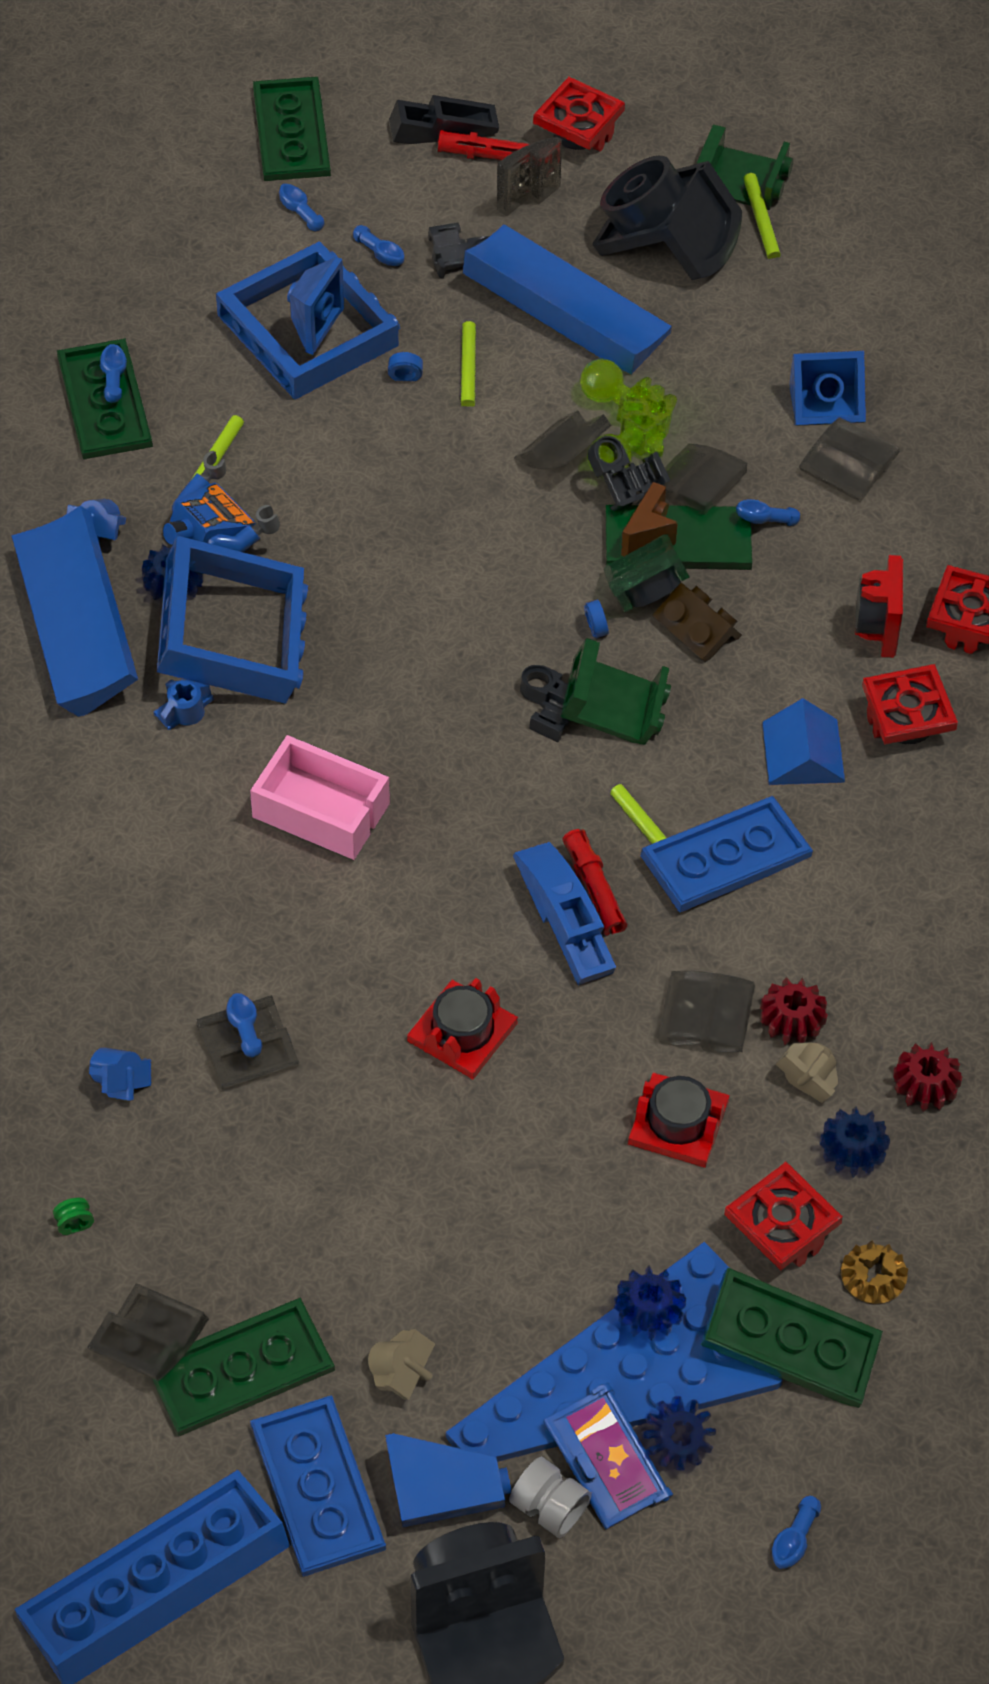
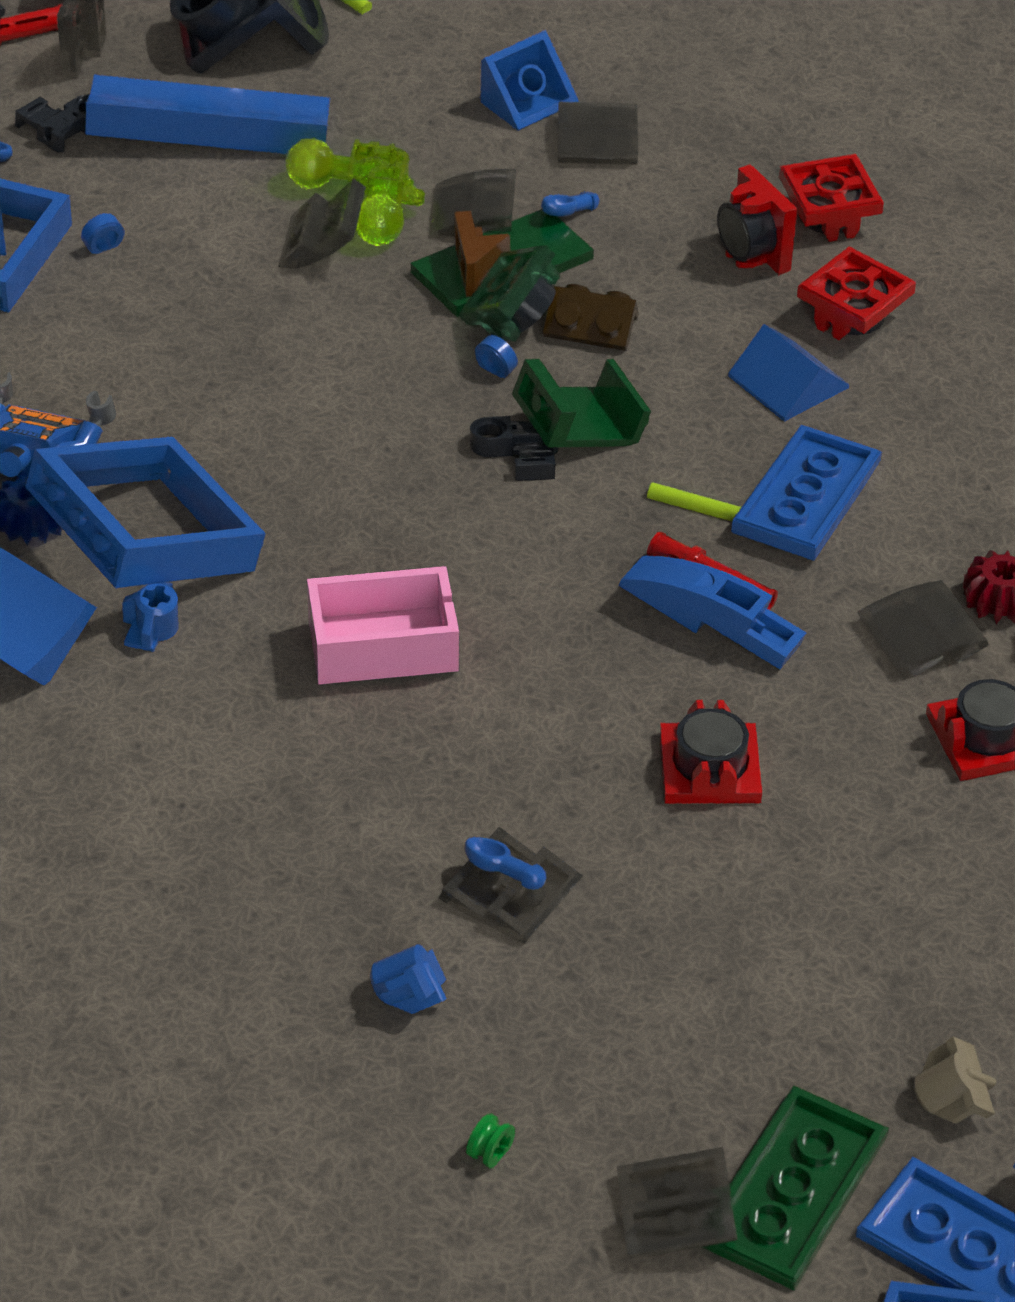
camera: 35 degrees left, 10 degrees down
(468, 364) = (159, 209): lime bar -> none
(623, 481) = (414, 227): black piece -> none

